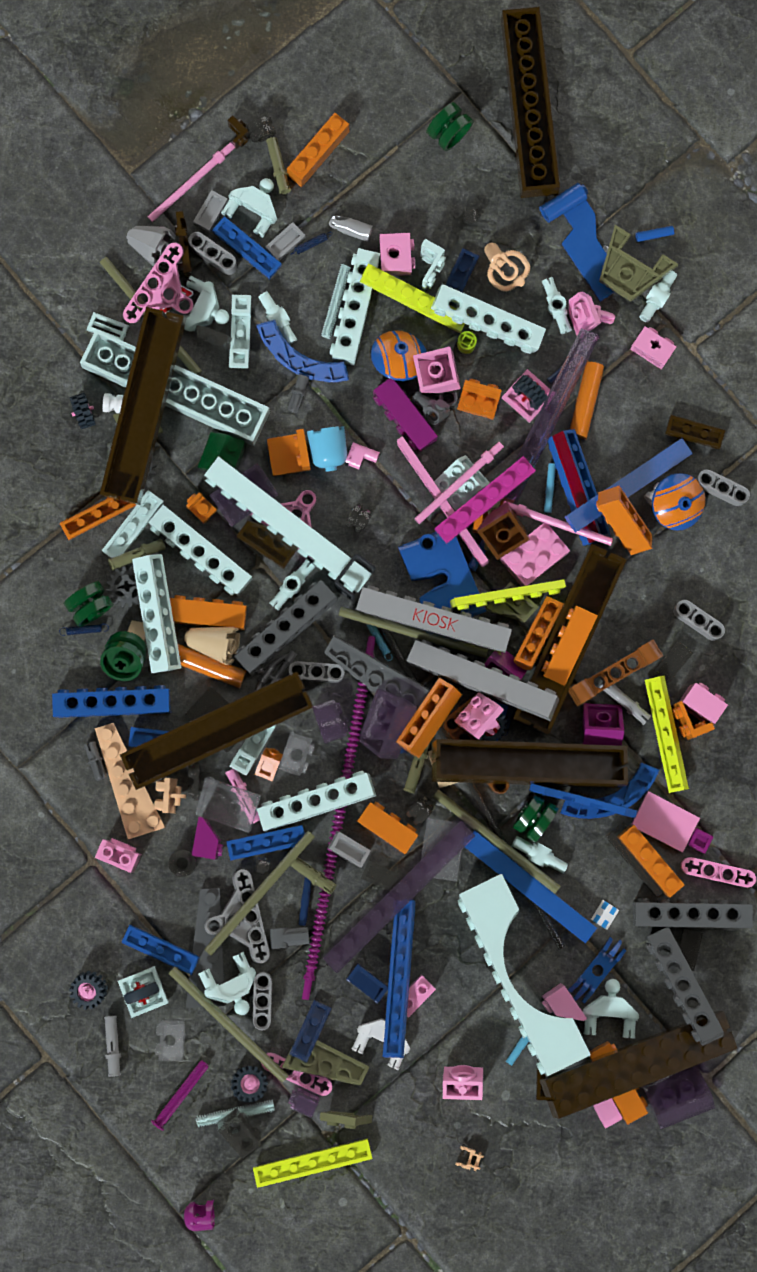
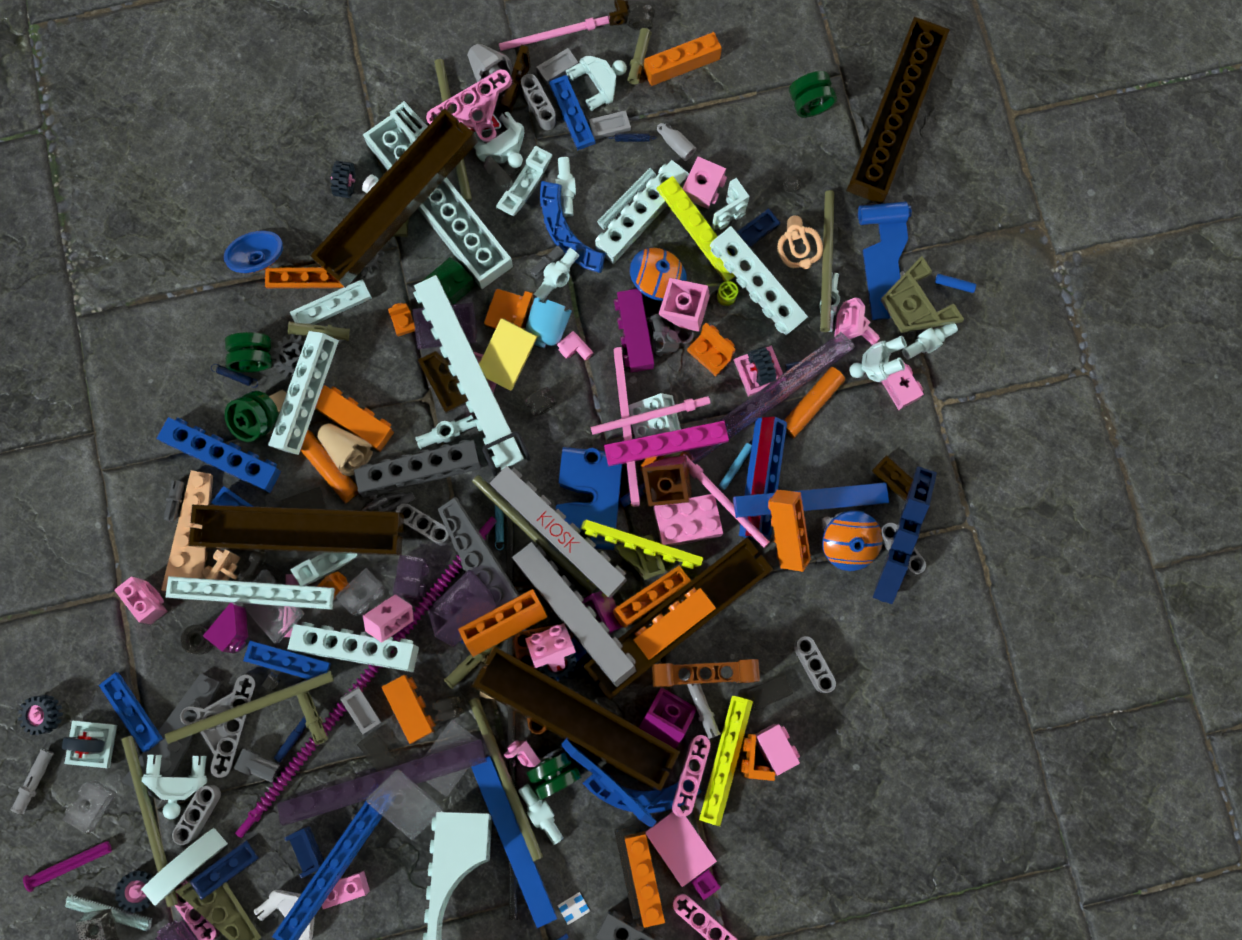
camera: 30 degrees right, 5 degrees down
(41, 514) = (253, 252): none -> blue dish
(165, 516) = (362, 311): light aqua brick -> none
(207, 801) = (250, 592): none -> light aqua tile
(277, 1044) = (183, 866): none -> light aqua slope
(310, 492) = (507, 354): none -> light yellow tile
(312, 400) = (556, 274): none -> light aqua pin
(333, 763) = (388, 618): none -> bright pink brick
(427, 903) = (404, 804): none -> clear tile
(501, 813) = (525, 753): none -> bright pink bracket
(537, 270) = (827, 261): none -> olive piece
(622, 337) = (876, 360): none -> light aqua connector
(645, 761) = (688, 774): none -> bright pink beam
(721, 474) = (906, 535): none -> dark blue arch

